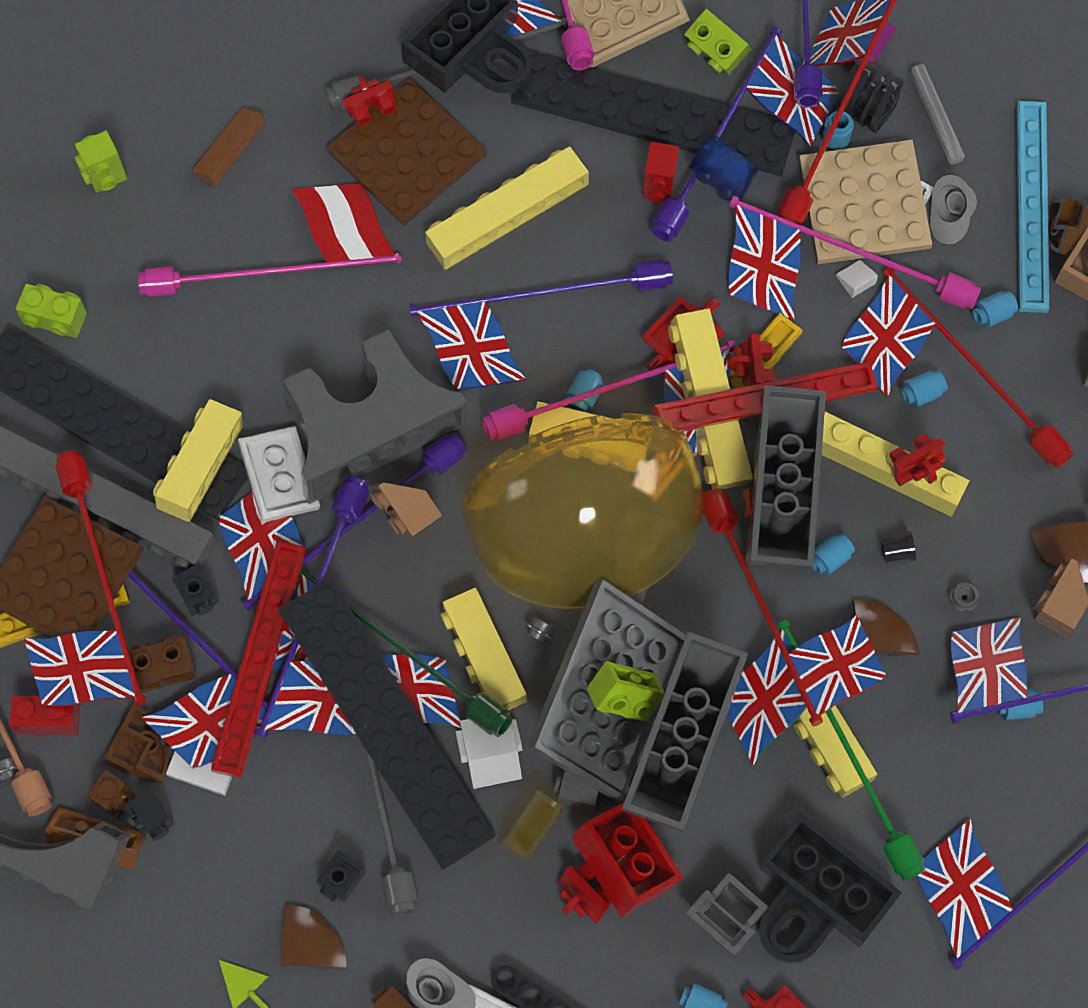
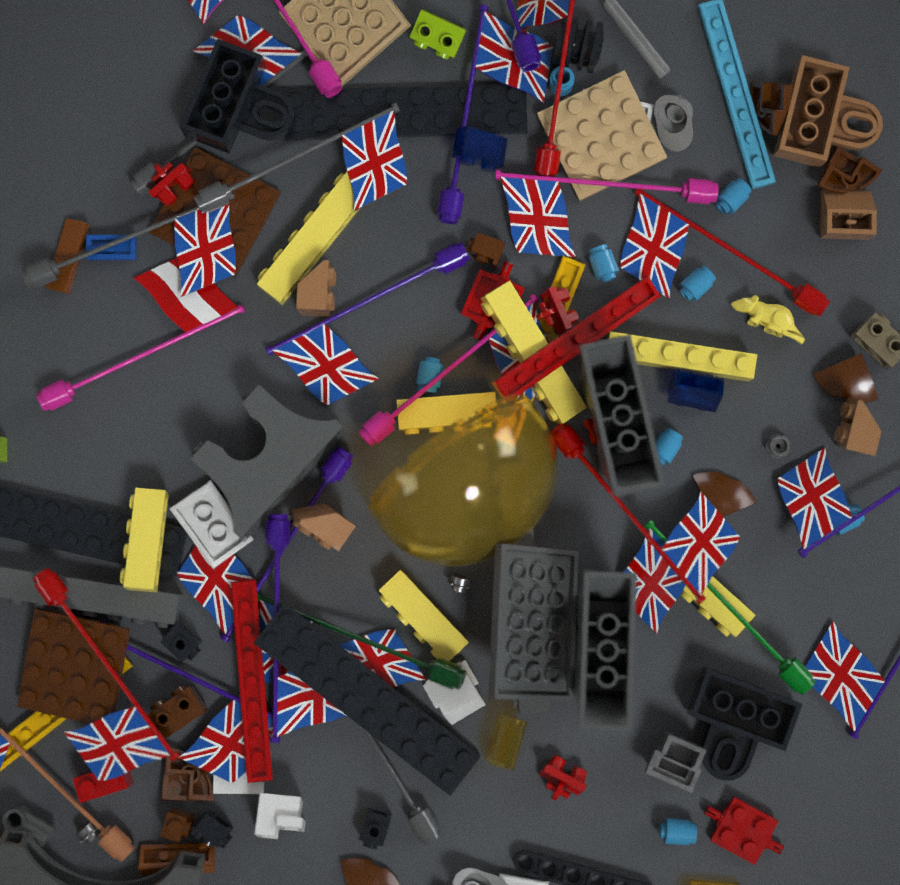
camera: 20 degrees left, 15 degrees up
(233, 819) = (278, 813): none -> white plate
(279, 150) = (121, 252): none -> blue plate
(378, 179) = (201, 244): none -> flag
(487, 260) = (315, 293): none -> medium nougat slope
(598, 140) = (370, 157): none -> flag
(625, 691) = (548, 626): lime brick -> none
(626, 859) = (589, 752): red brick -> none
(660, 172) = (430, 168): red brick -> none
(695, 278) = (486, 249): none -> reddish brown brick
(823, 333) = (603, 263): none -> dark azure brick
(857, 278) = (614, 204): white slope -> none
(885, 500) = (696, 390): none -> clear blue brick
(899, 548) = (716, 424): black bush -> none
(920, 463) = (718, 359): red hips -> none
(1003, 453) = (774, 317): none -> light yellow animal

